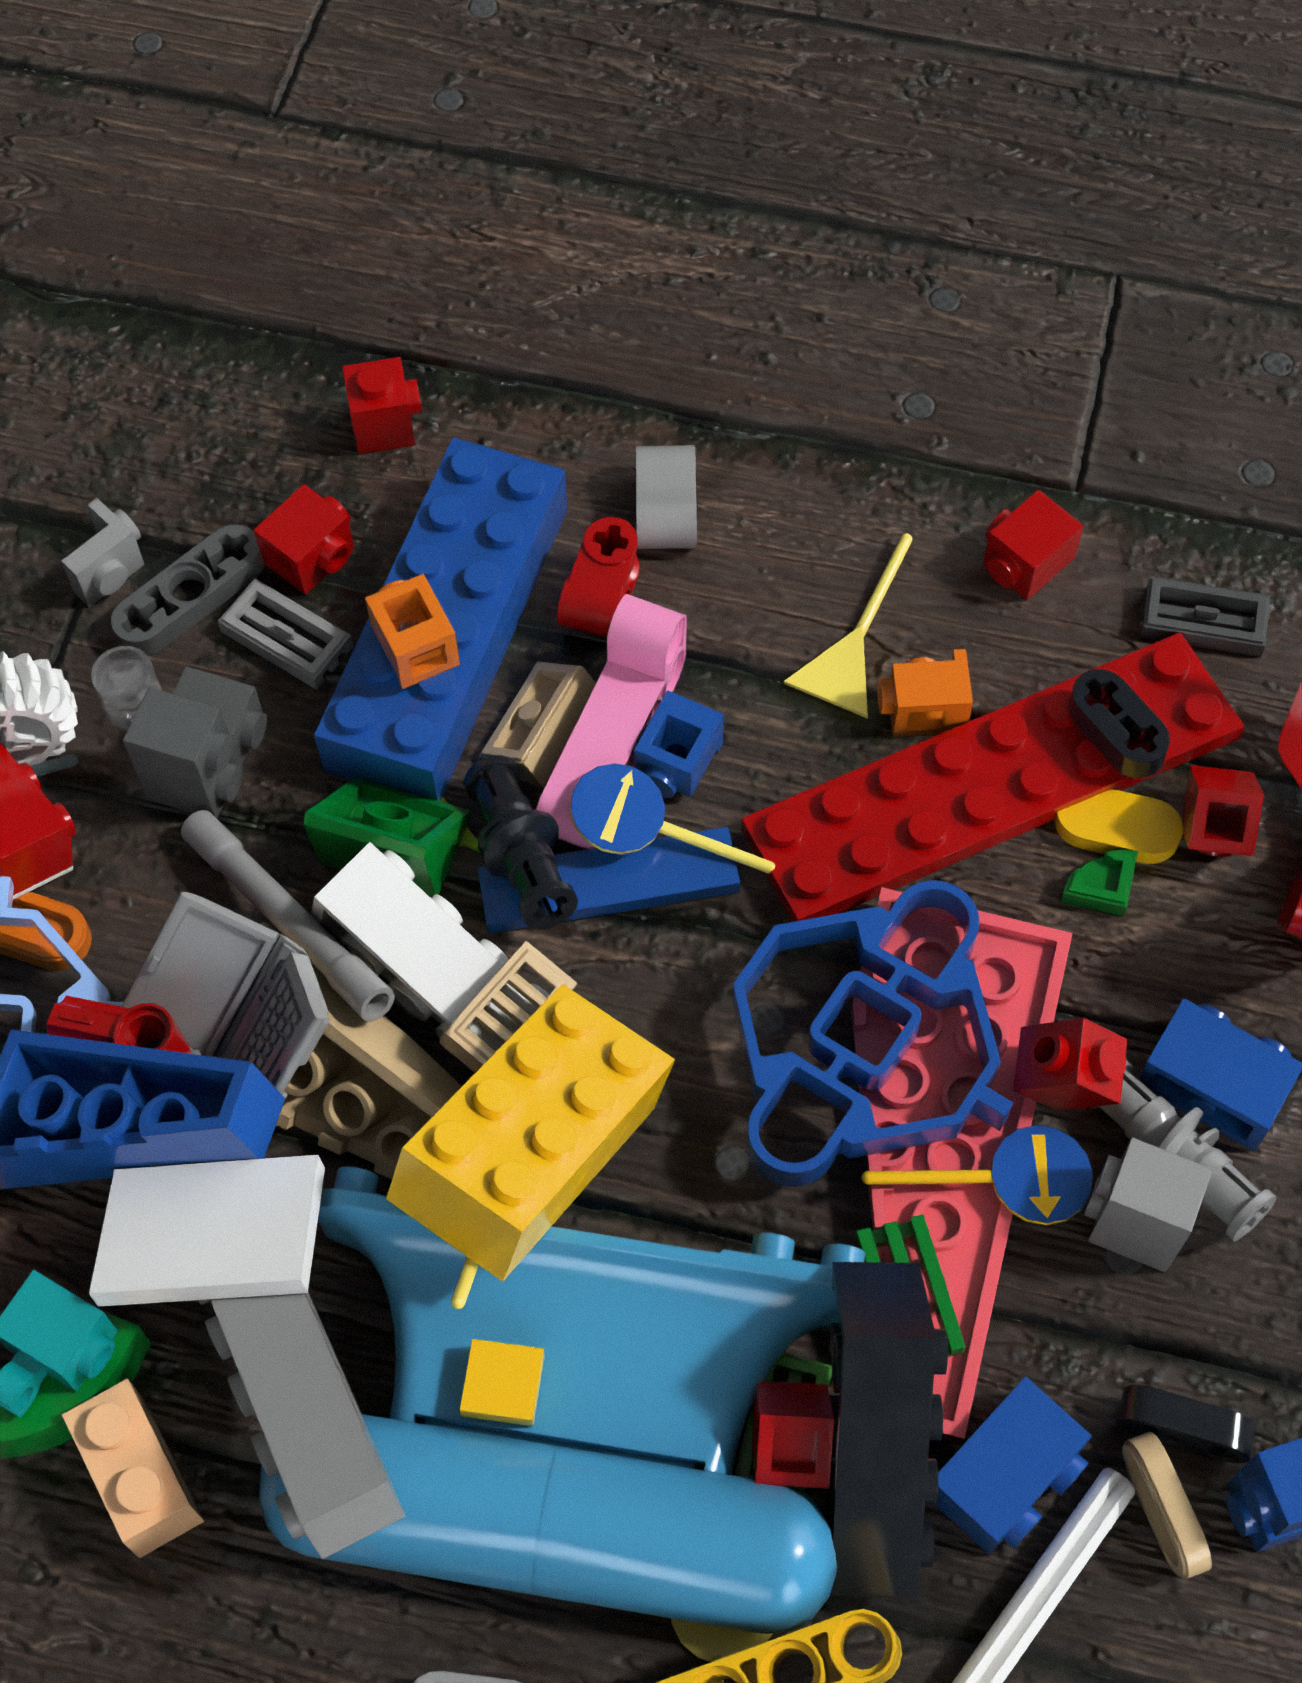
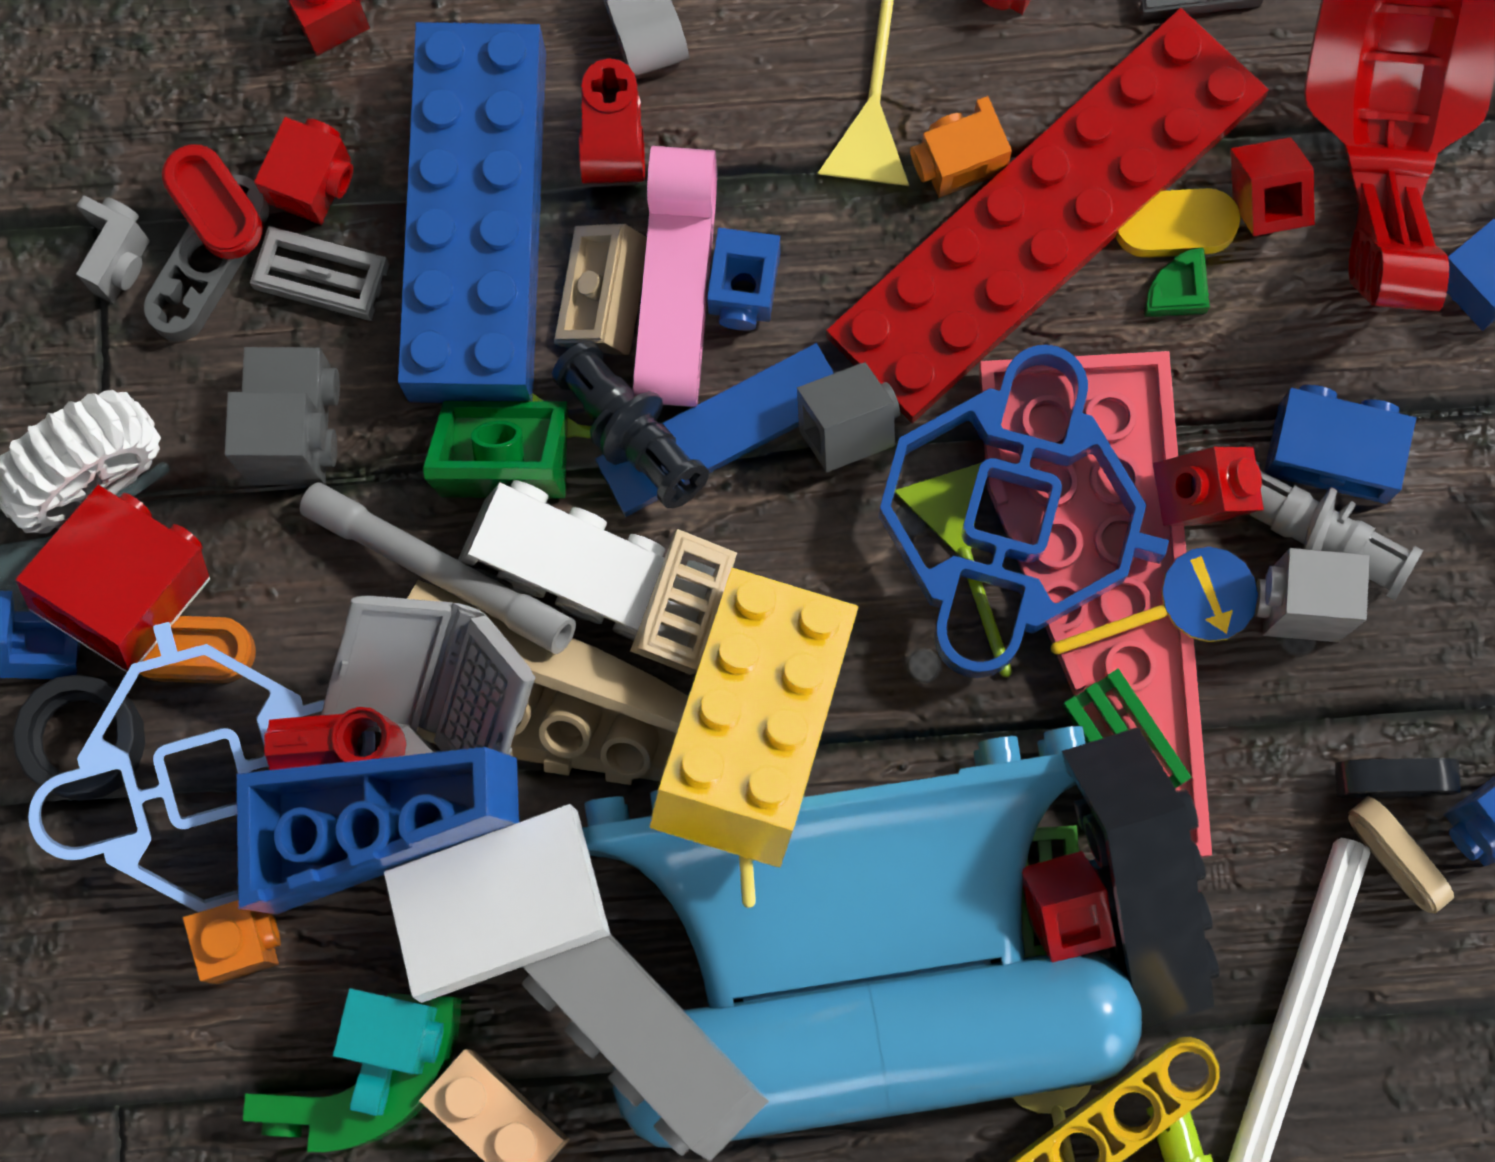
camera: 15 degrees left, 15 degrees up
(121, 682) = (181, 372): clear wheel -> none
(210, 539) = (212, 201): none -> red tile
(413, 630) = (455, 226): orange brick -> none
(502, 1382) = (802, 947): yellow tile -> none
(624, 812) = (717, 364): blue piece -> none
(733, 897) = (847, 416): none -> dark grey brick
(794, 1012) = (943, 507): none -> lime piece
(1009, 1466) = (1260, 864): blue brick -> none
(1124, 719) = (1156, 123): black beam -> none

